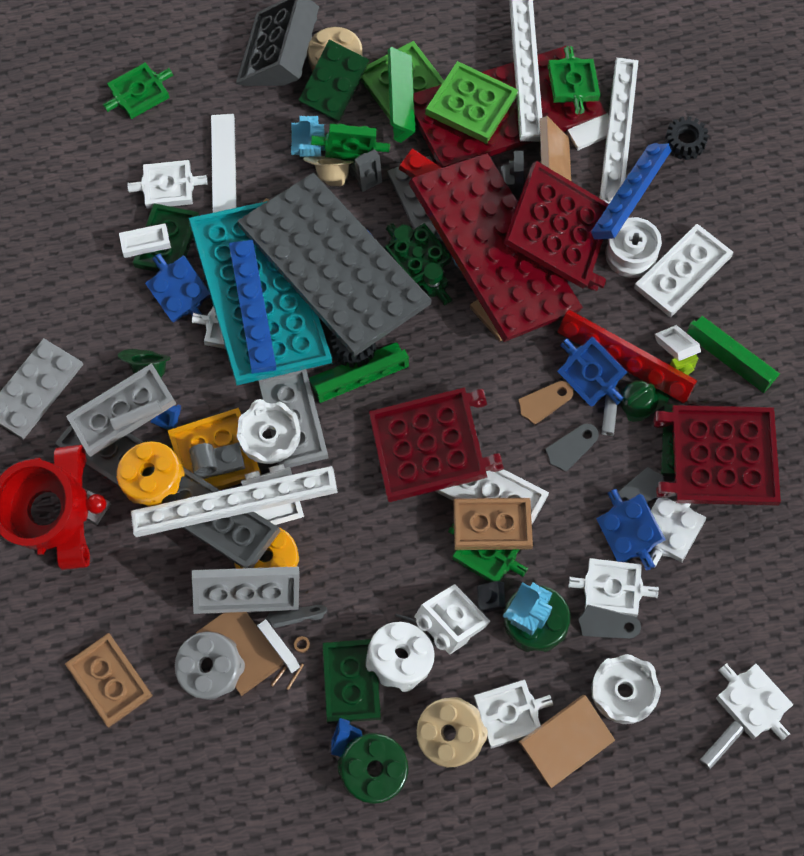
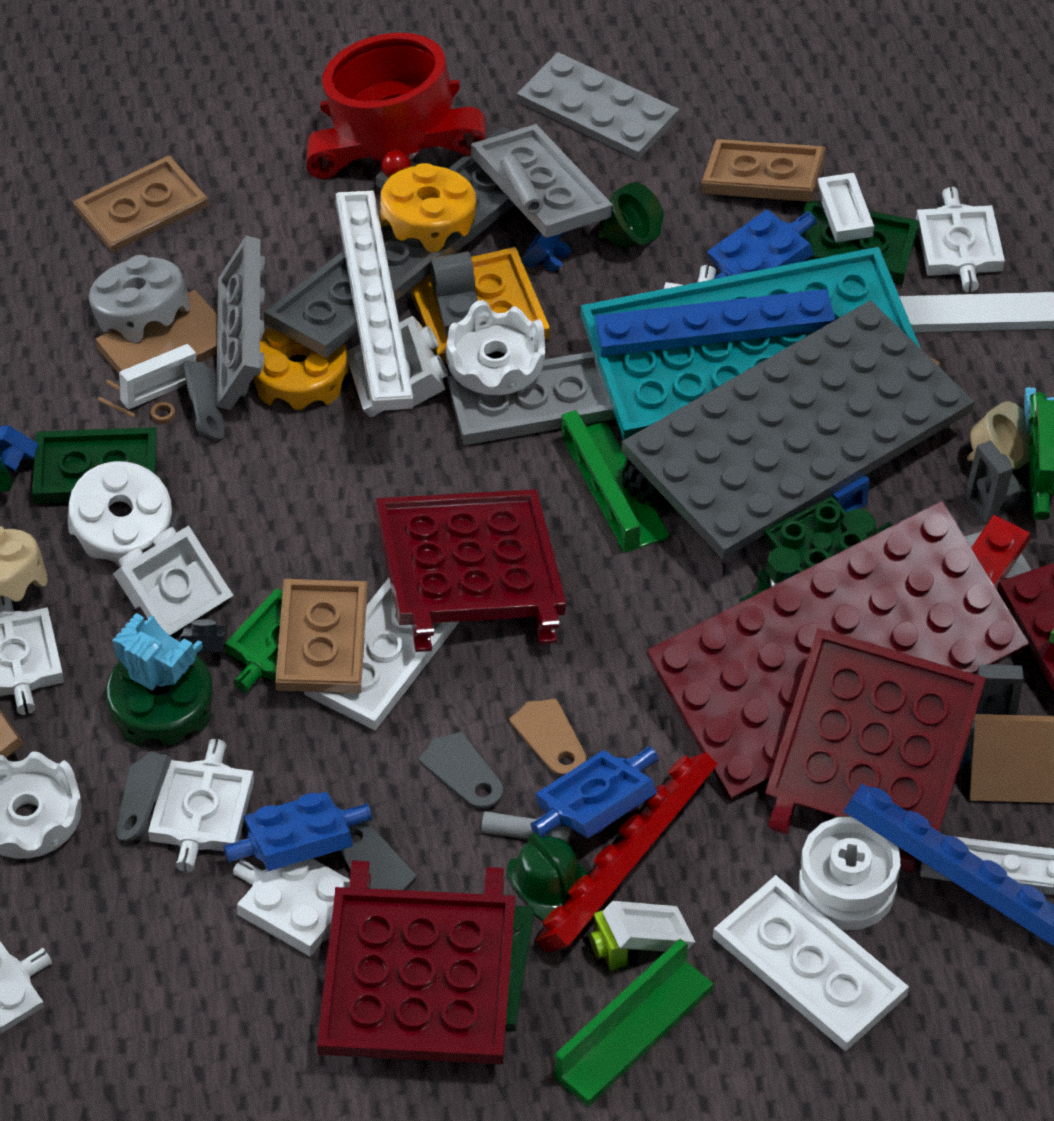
camera: 90 degrees right, 15 degrees down
(104, 288) = (763, 170): none -> medium nougat tile

